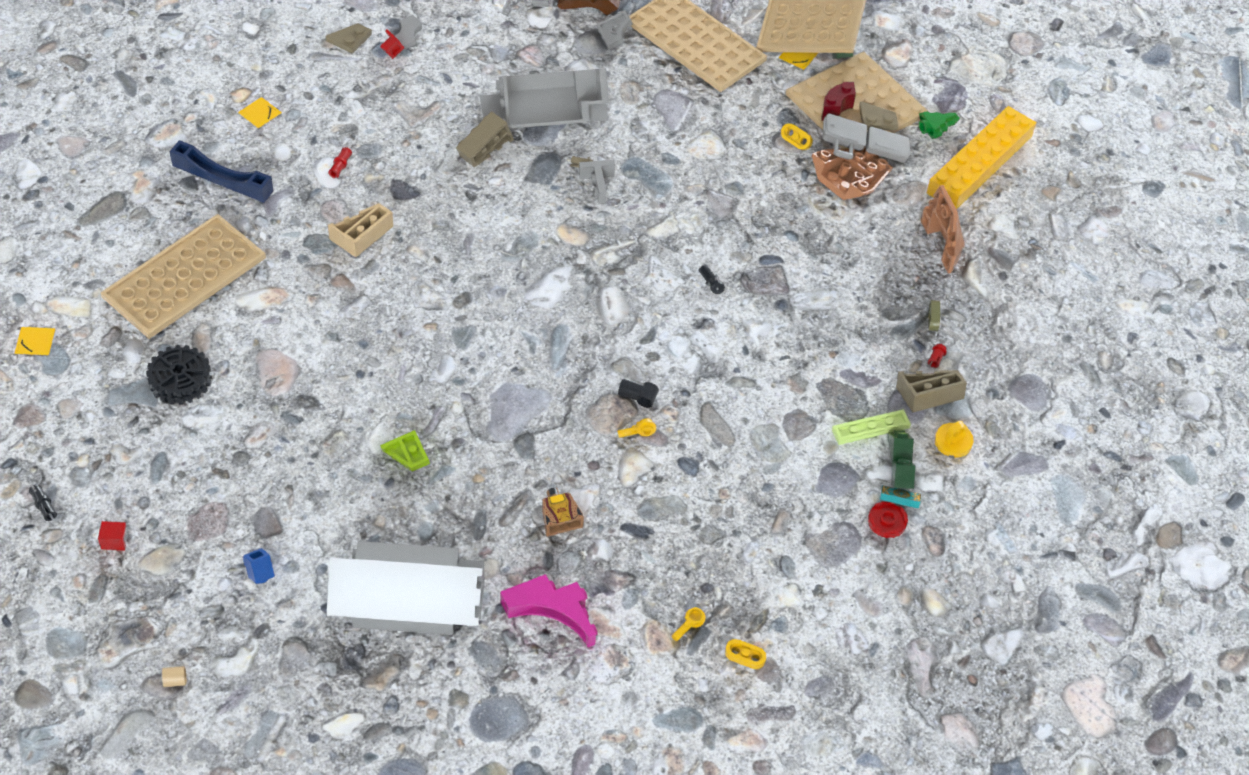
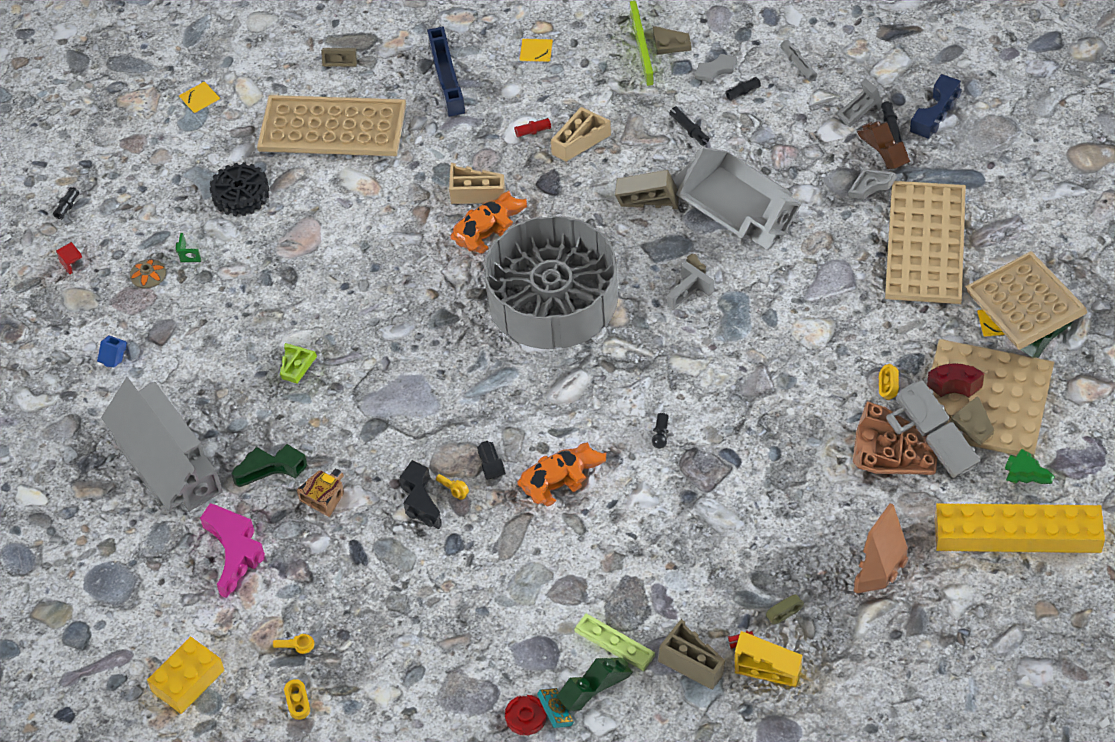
camera: 60 degrees right, 0 degrees up
(116, 224) = (339, 57): none -> dark tan tile
(191, 500) = (147, 273): none -> dark tan dish
(203, 455) = (182, 251): none -> green bracket
(334, 51) = (641, 42): none -> lime tile
(384, 139) = (579, 134): none -> tan wedge
(392, 45) = (686, 69): red panel -> none
(404, 242) = (485, 220): none -> orange animal
(446, 32) = (743, 88): none -> black pin
(453, 81) = (693, 130): none -> black pin
(488, 535) = (260, 464): none -> dark green arch
(516, 243) = (551, 281): none -> light grey wheel
(634, 458) = (418, 502): none -> black arch
(654, 715) = (185, 675): none -> yellow brick
(692, 355) = (559, 469): none -> orange animal
(954, 439) = (659, 710): yellow tile -> none
(971, 351) = (766, 660): none -> yellow wedge

